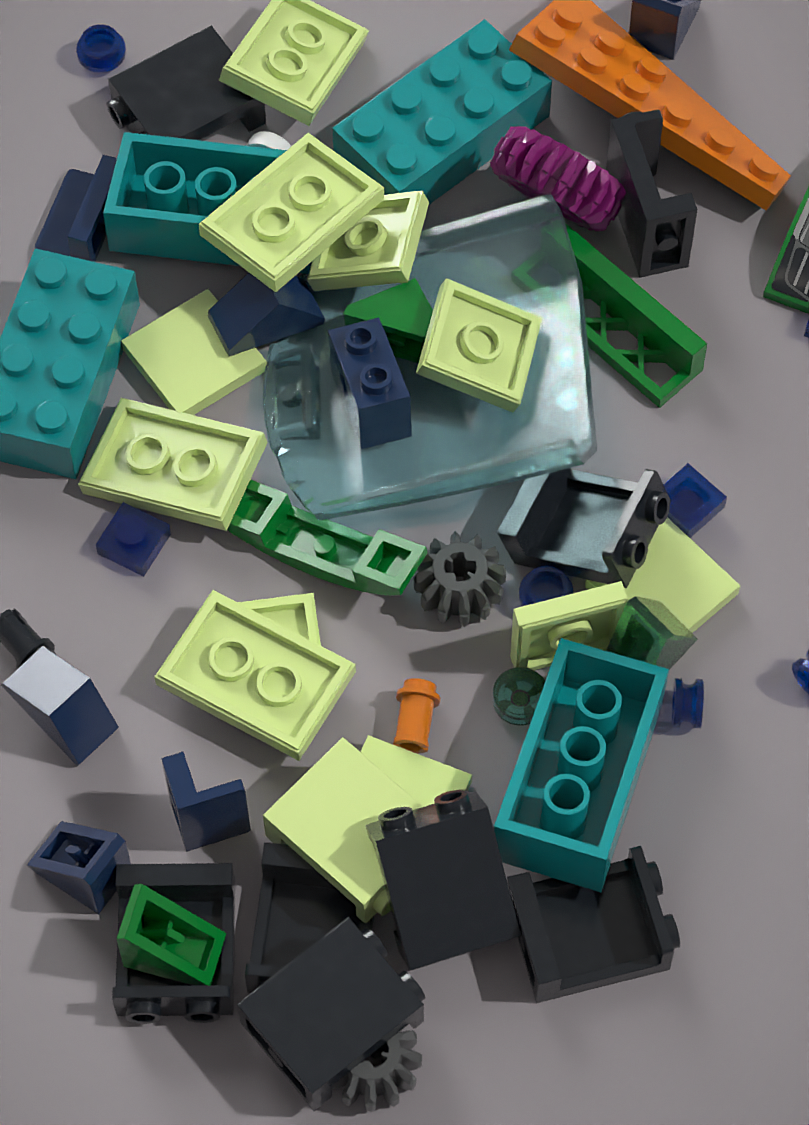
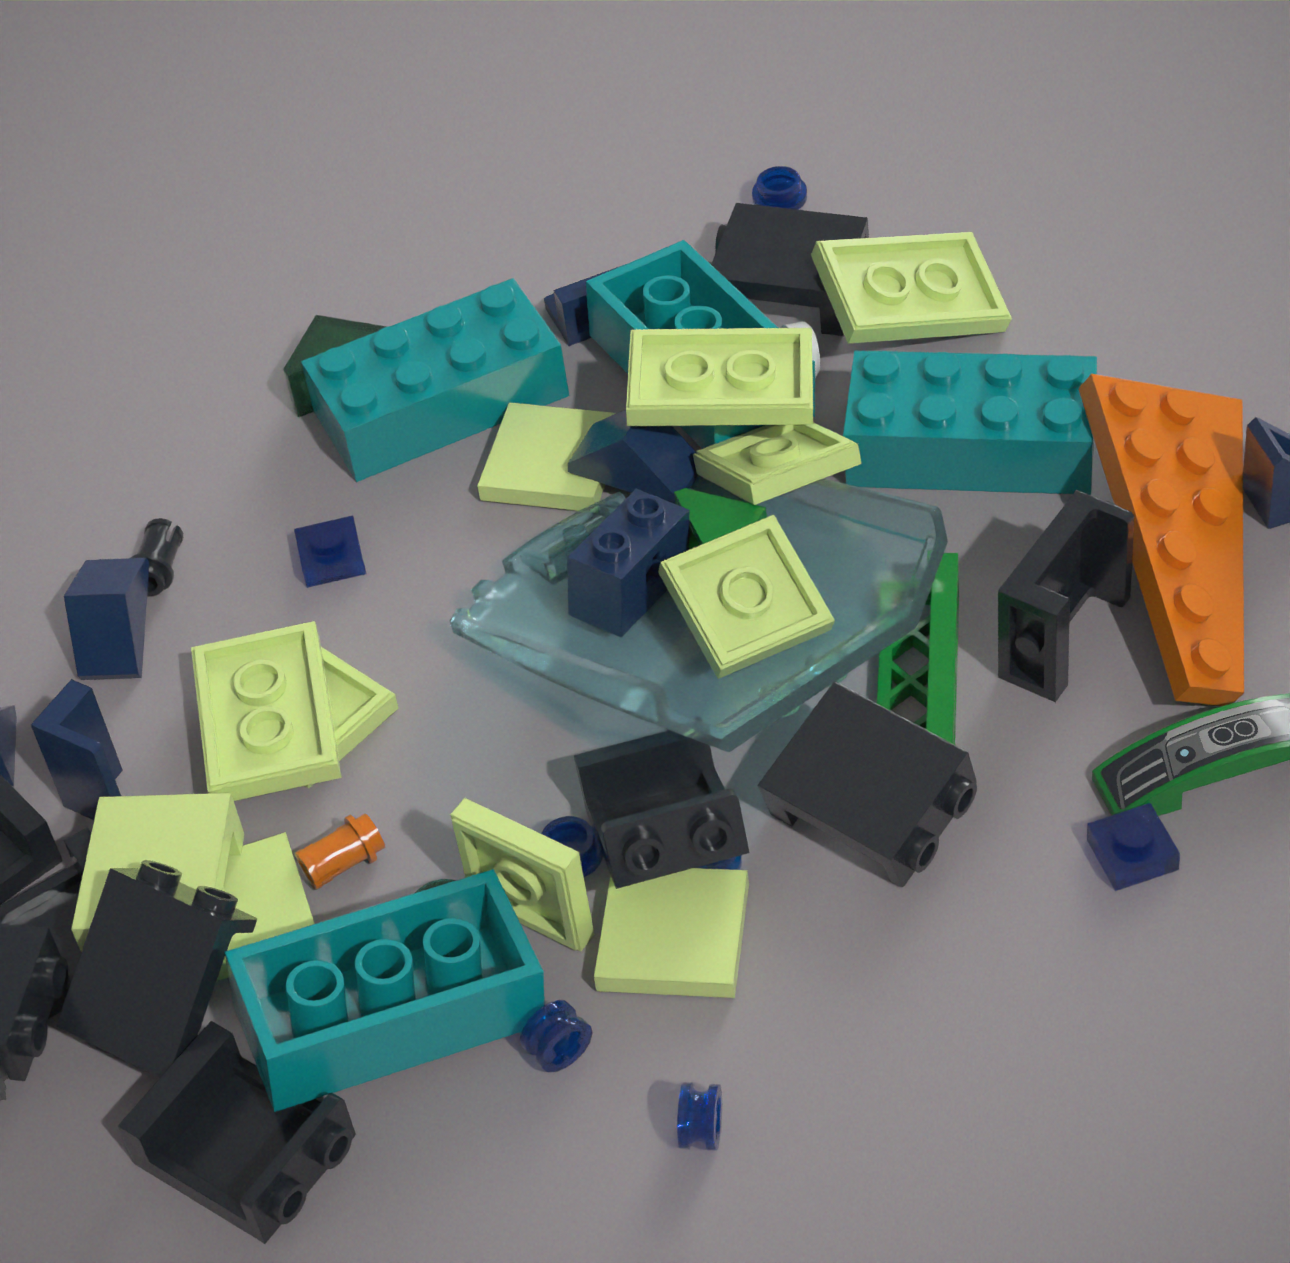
camera: 55 degrees right, 15 degrees down
(173, 463) = (424, 517): yellowish green tile -> none
(324, 547) = (445, 663): green slope -> none
(459, 559) = (512, 772): dark grey gear -> none
(543, 166) = (983, 510): magenta gear -> none
(650, 634) = (585, 944): clear green slope -> none
(677, 400) = (871, 781): none -> black panel
(692, 500) = (781, 878): clear blue plate -> none

